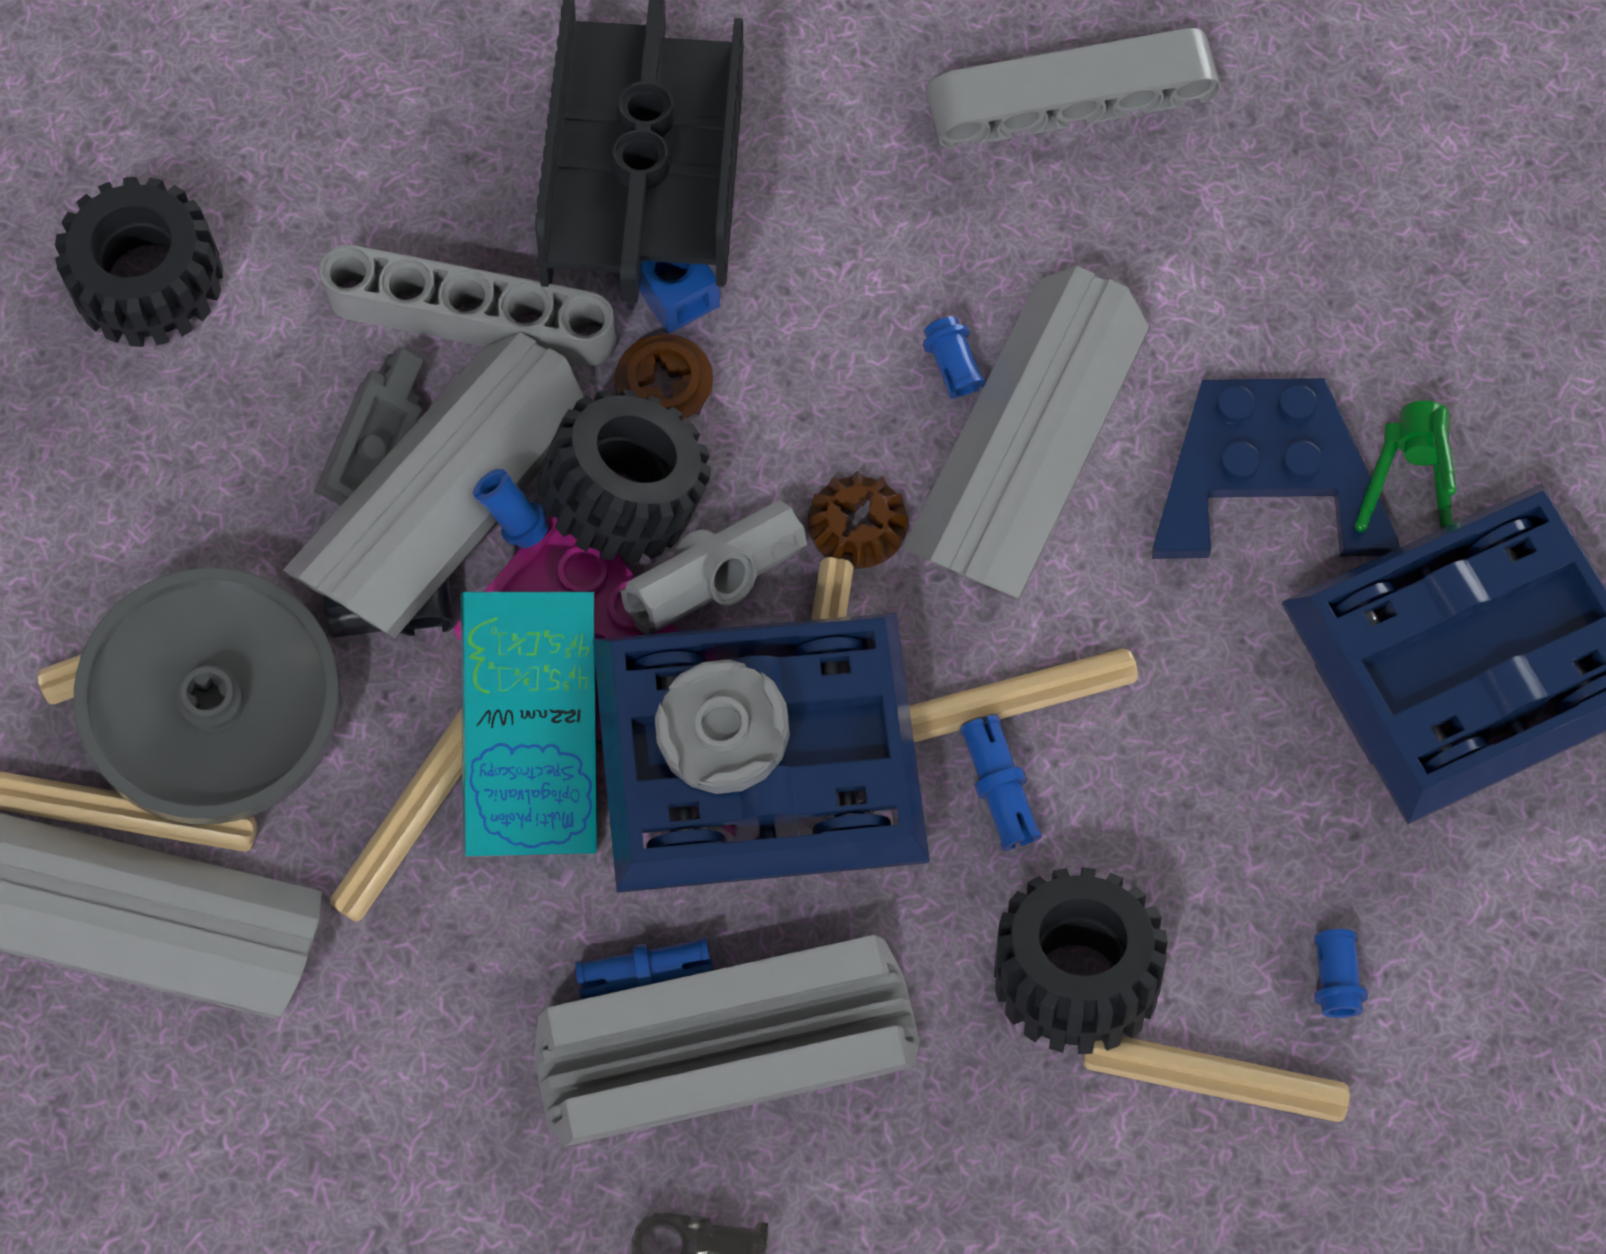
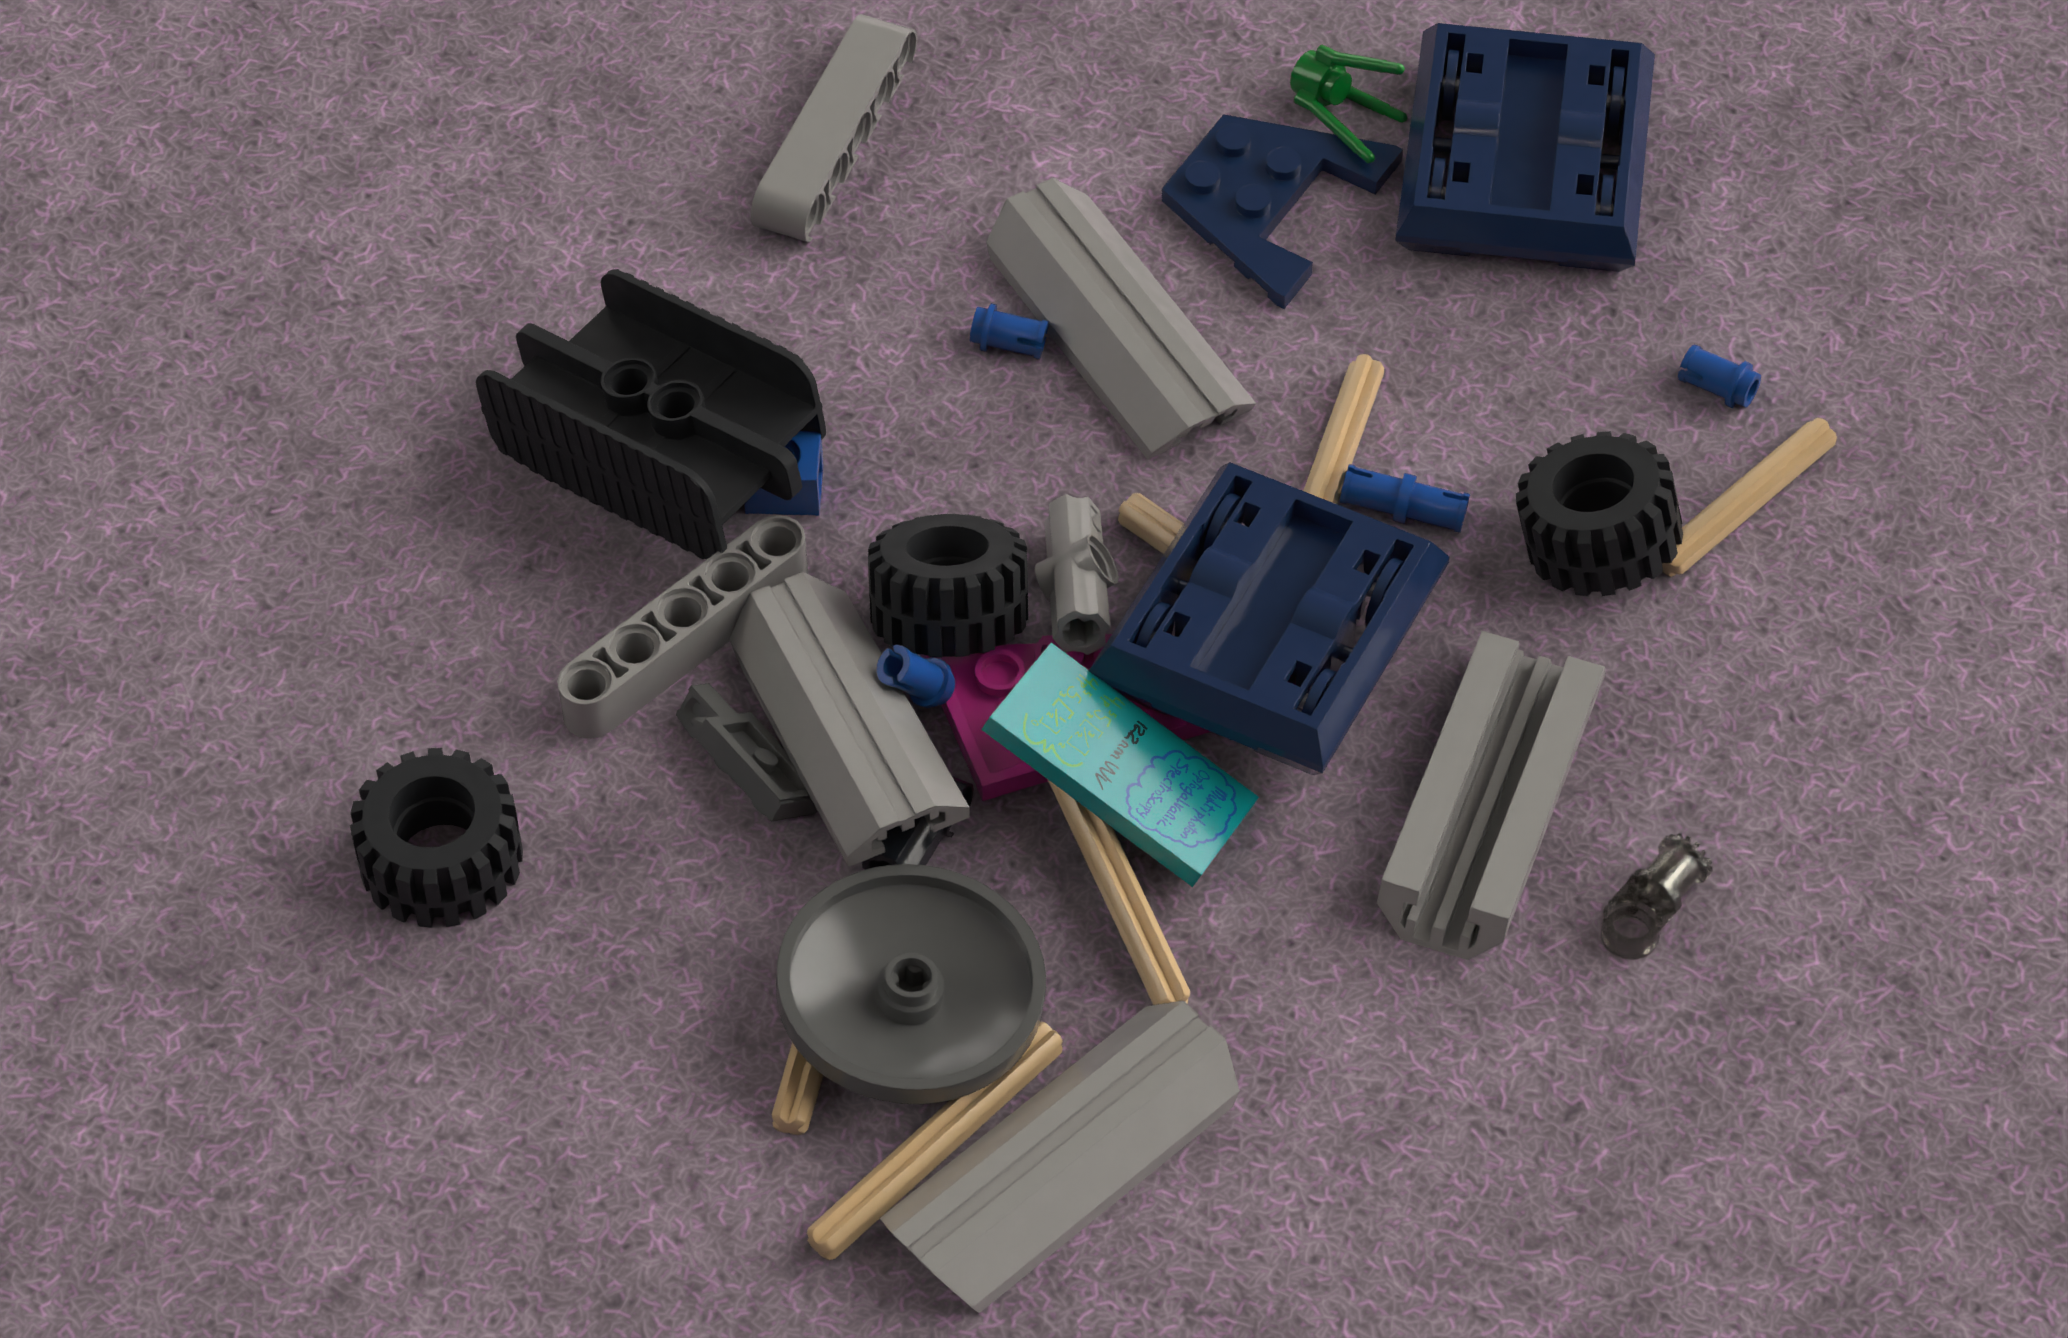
camera: 55 degrees left, 15 degrees down
(642, 967) = (1385, 815): blue pin -> none
(679, 359) = (849, 517): reddish brown gear -> none
(722, 726) = (1249, 603): light grey tile -> none
(866, 544) = (1127, 471): reddish brown gear -> none

